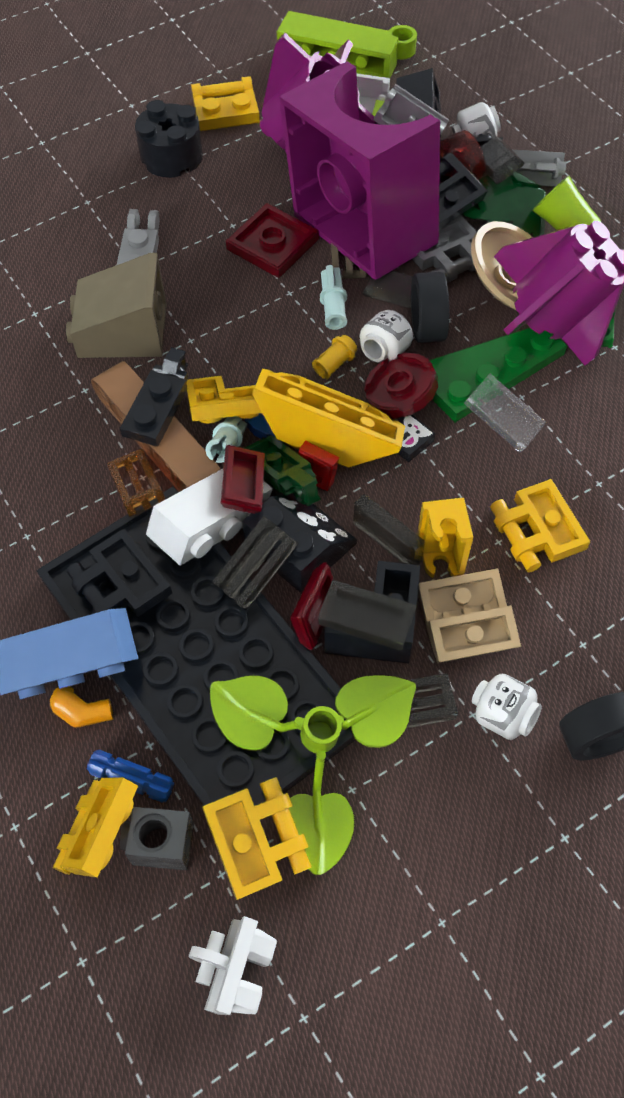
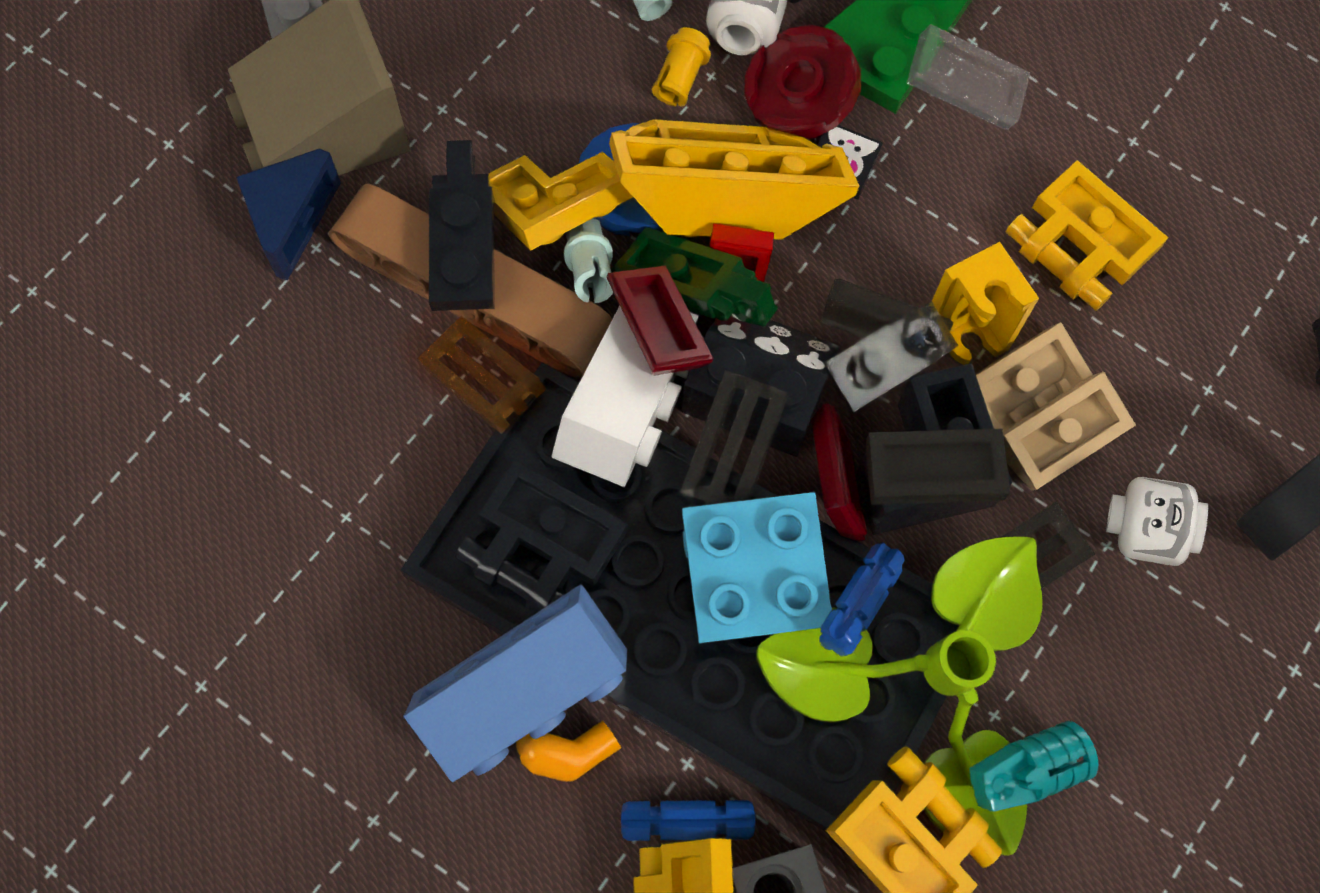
camera: 25 degrees left, 10 degrees up
(77, 360) = (288, 205): none -> dark blue slope
(234, 637) = (756, 567): none -> medium azure hinge
(288, 678) = (861, 599): none -> blue axle
(354, 825) = (1034, 767): none -> teal hinge
(381, 541) = (890, 355): none -> clear smoke leg

